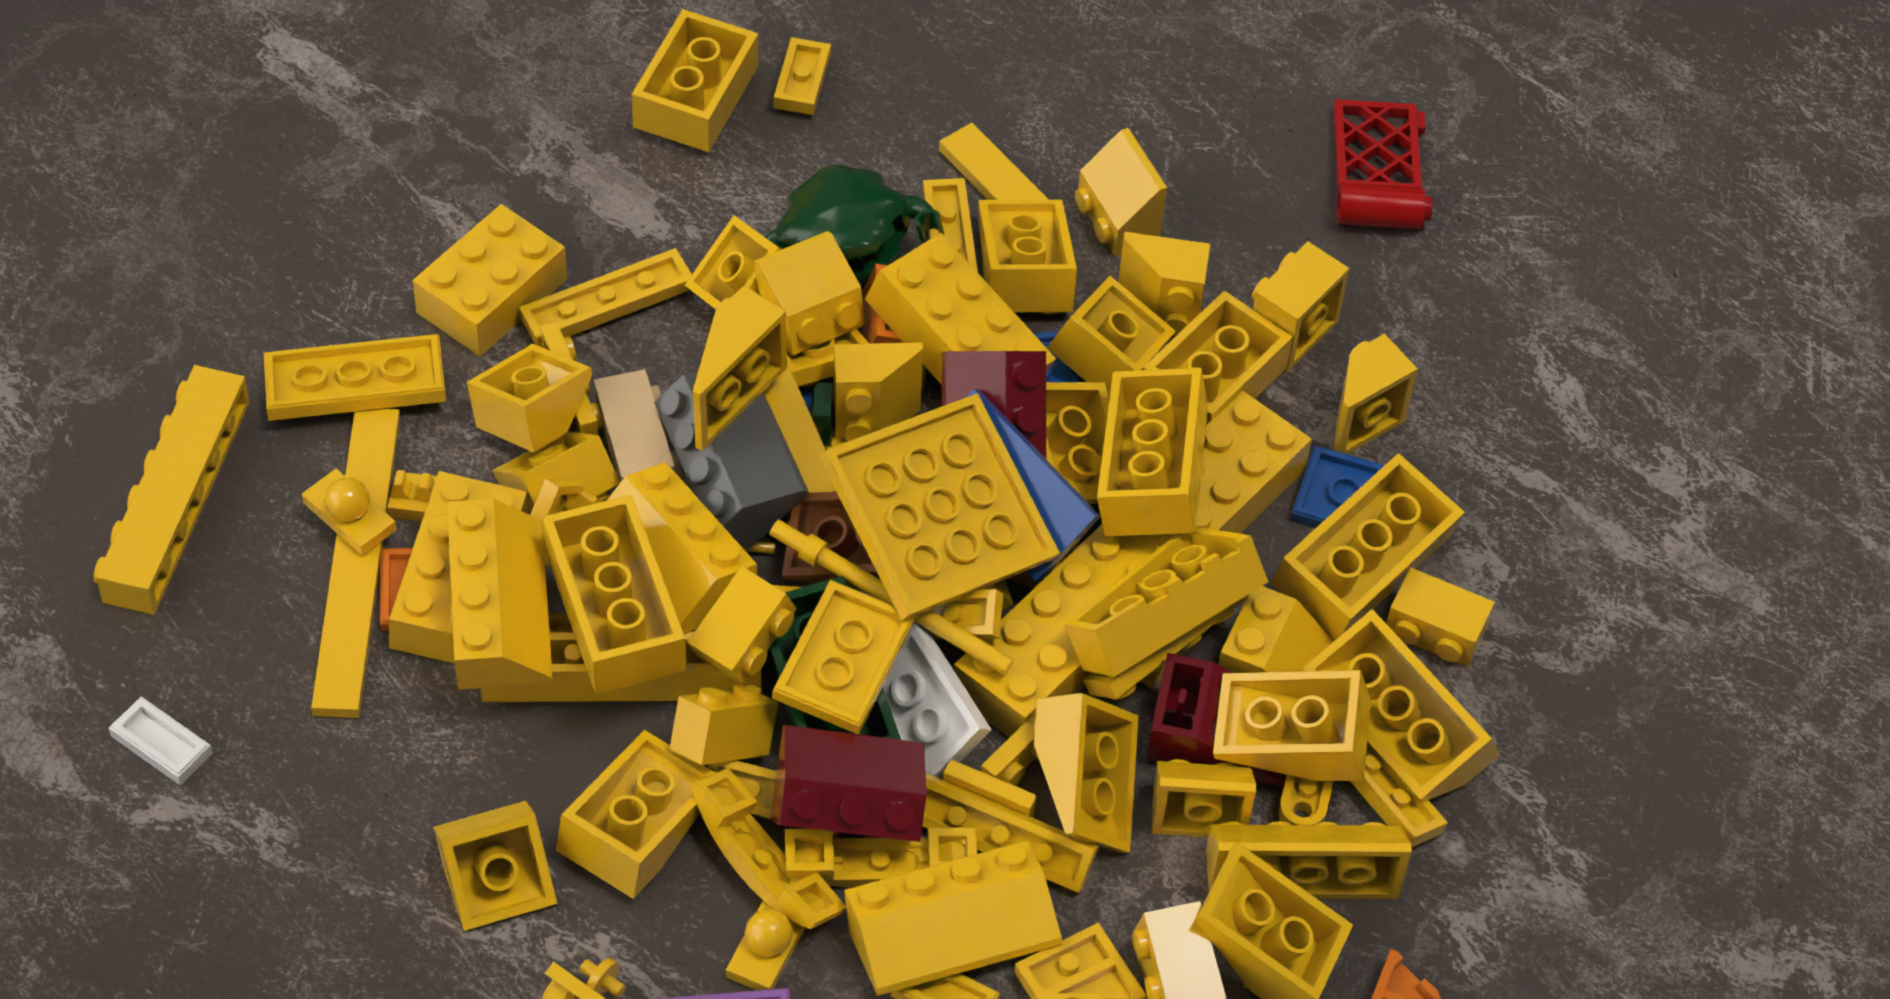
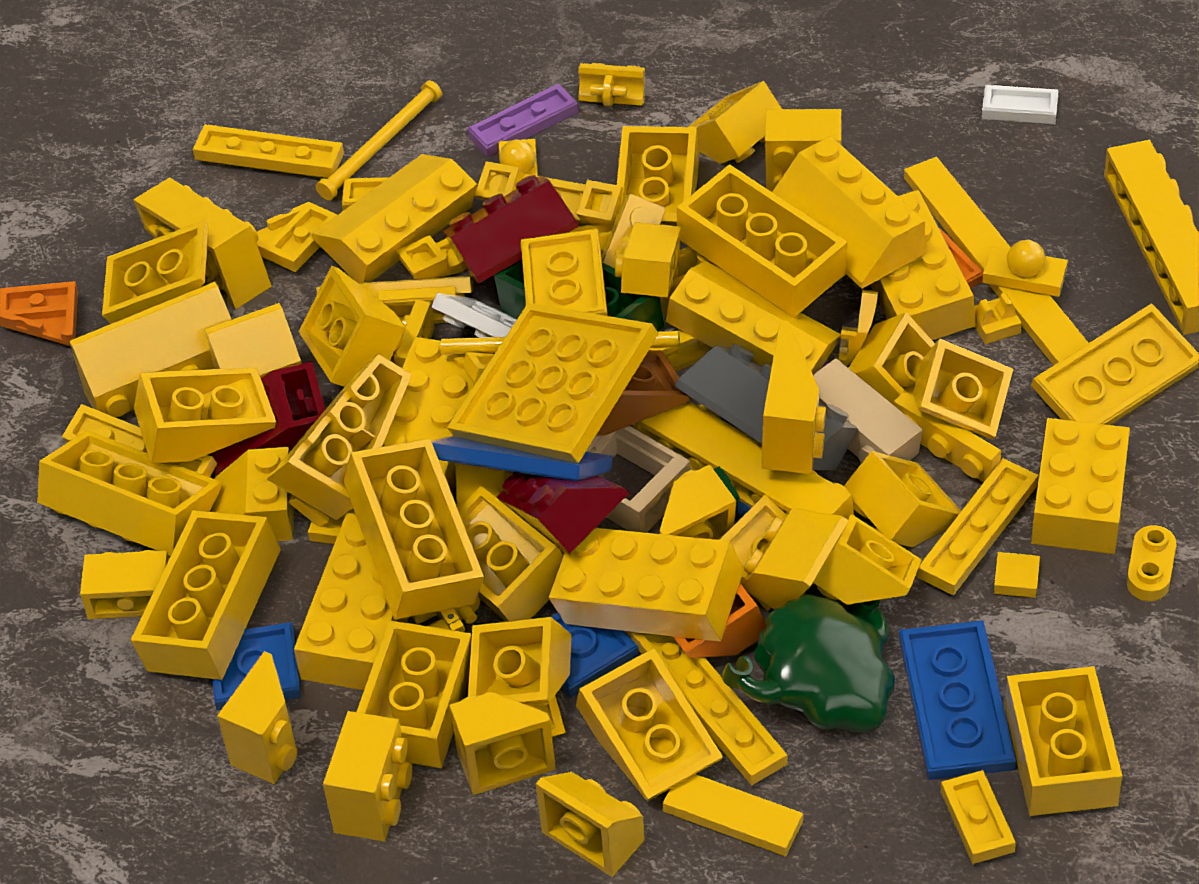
camera: 160 degrees right, 5 degrees down
(459, 750) = (793, 131): none -> yellow brick
(482, 200) = (1153, 560): none -> yellow plate
(607, 248) = (1016, 574): none -> yellow tile
(657, 335) = (900, 499): none -> yellow slope
(743, 173) = (956, 700): none -> blue tile

